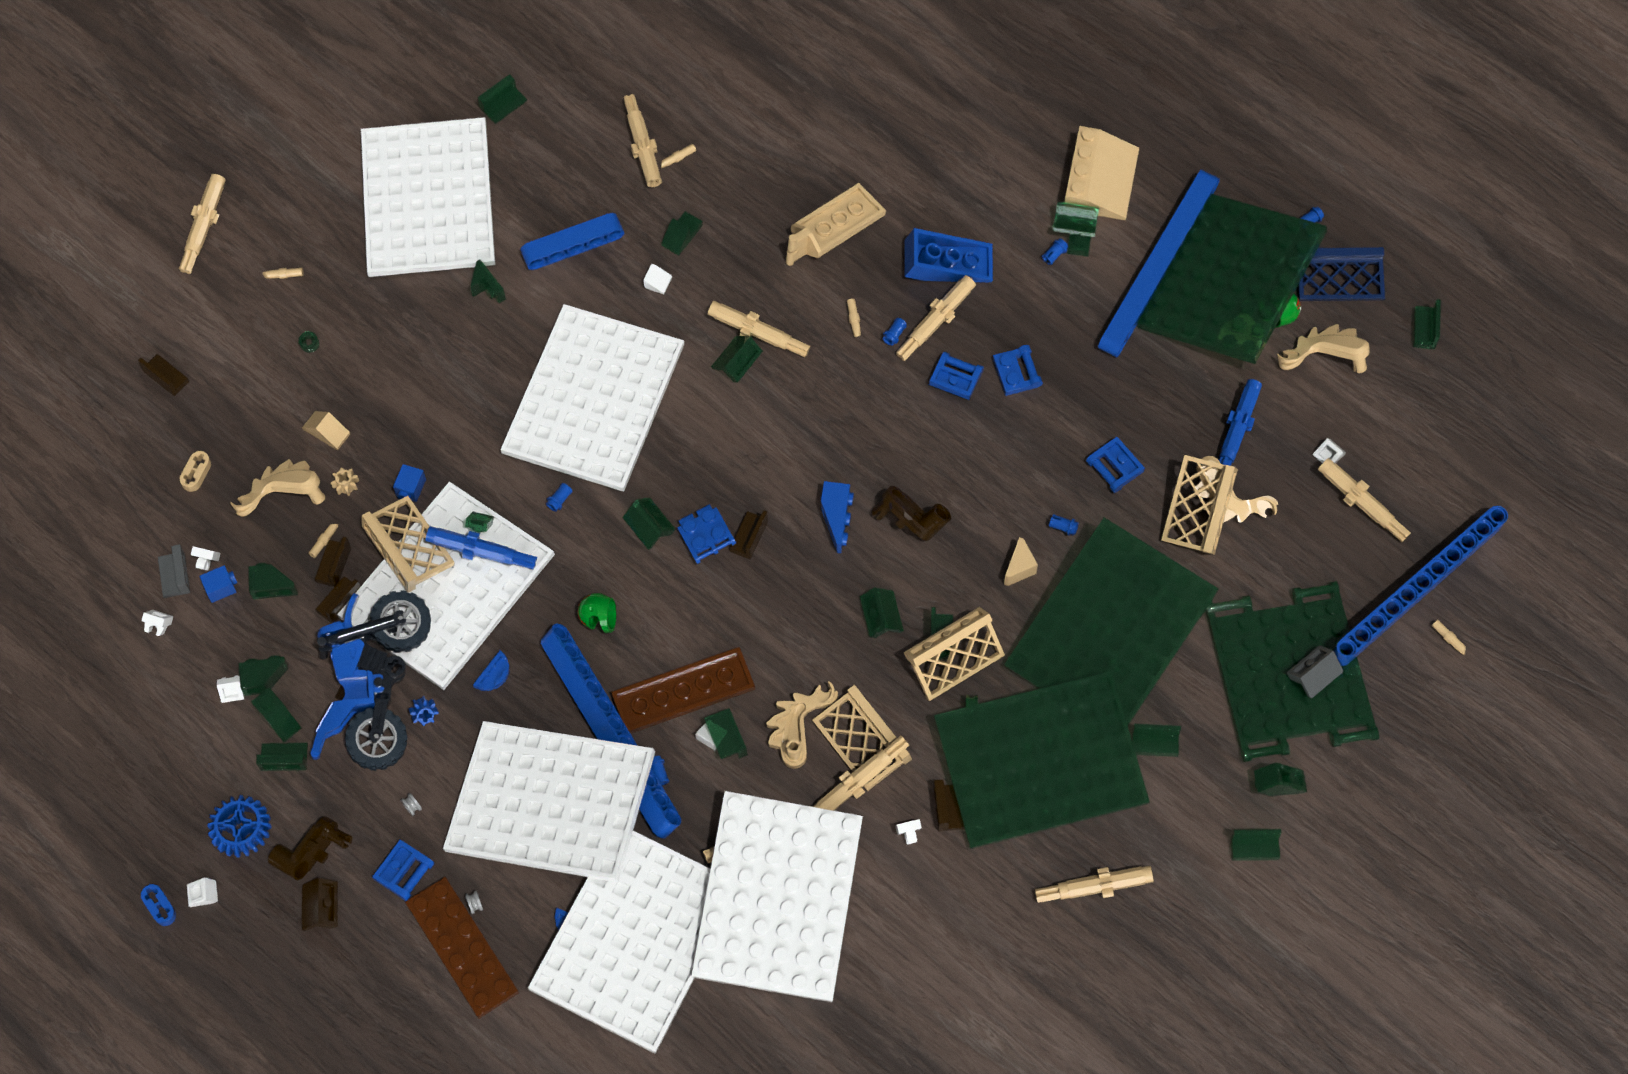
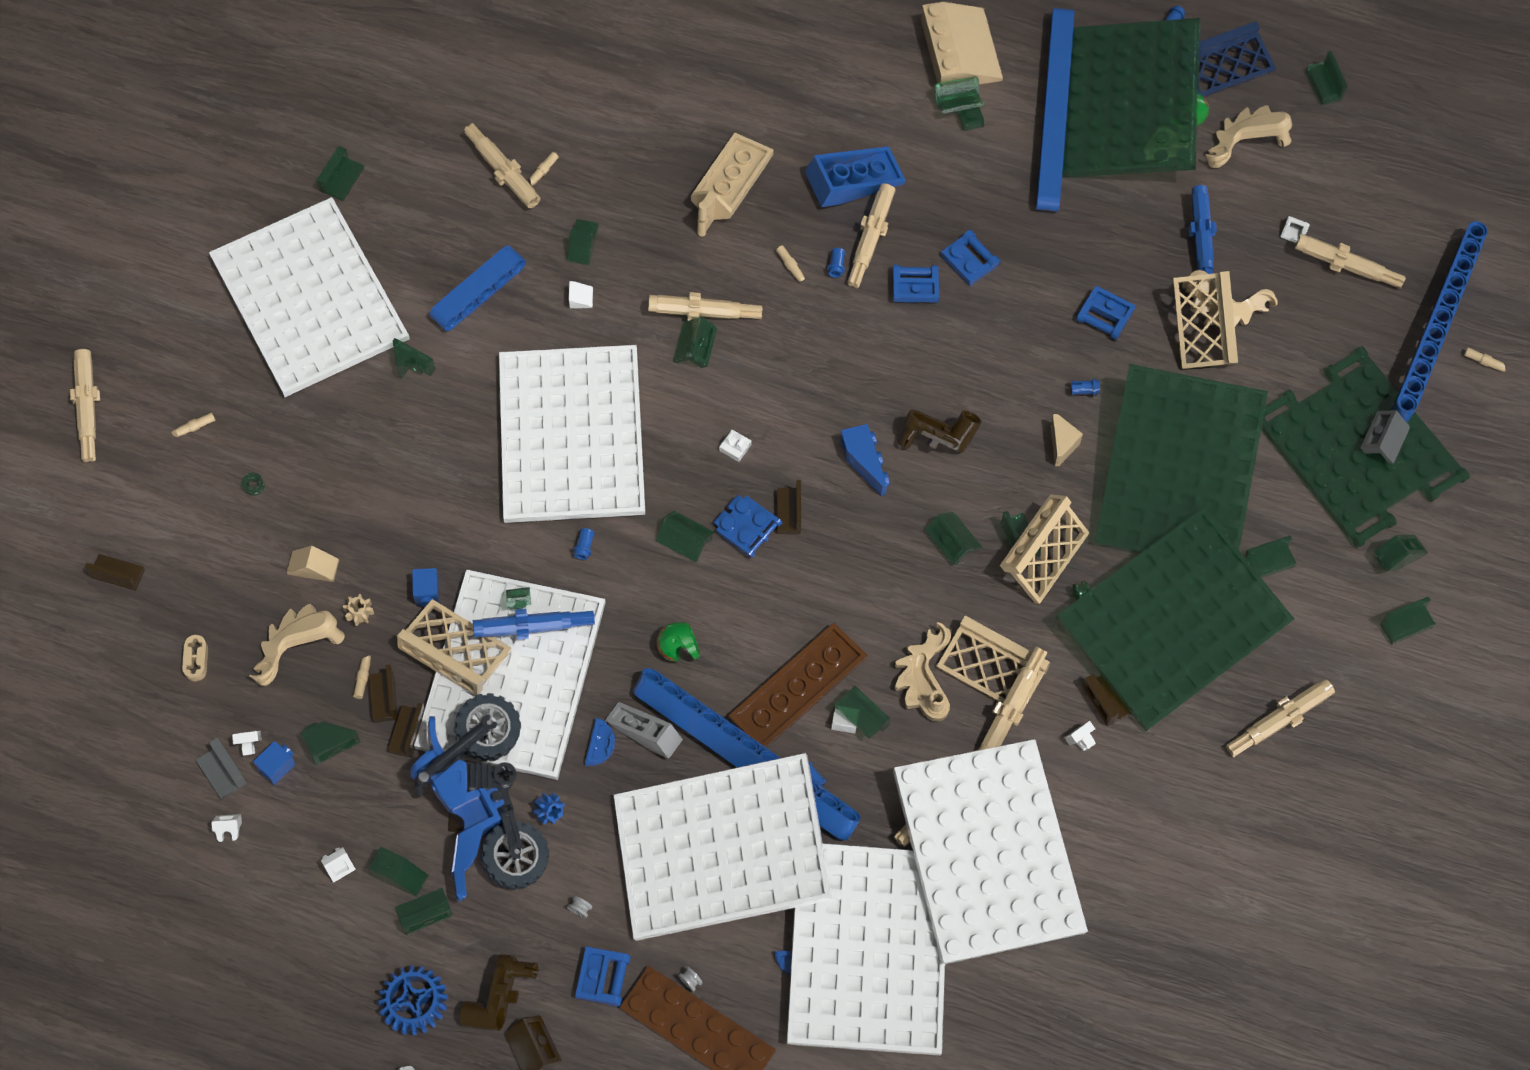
camera: 25 degrees left, 0 degrees up
(261, 674) = (363, 838): clear green slope -> none
(535, 676) = (645, 729): none -> light grey slope
(729, 460) = (735, 445): none -> white tile
(1059, 246) = (954, 126): blue pin -> none

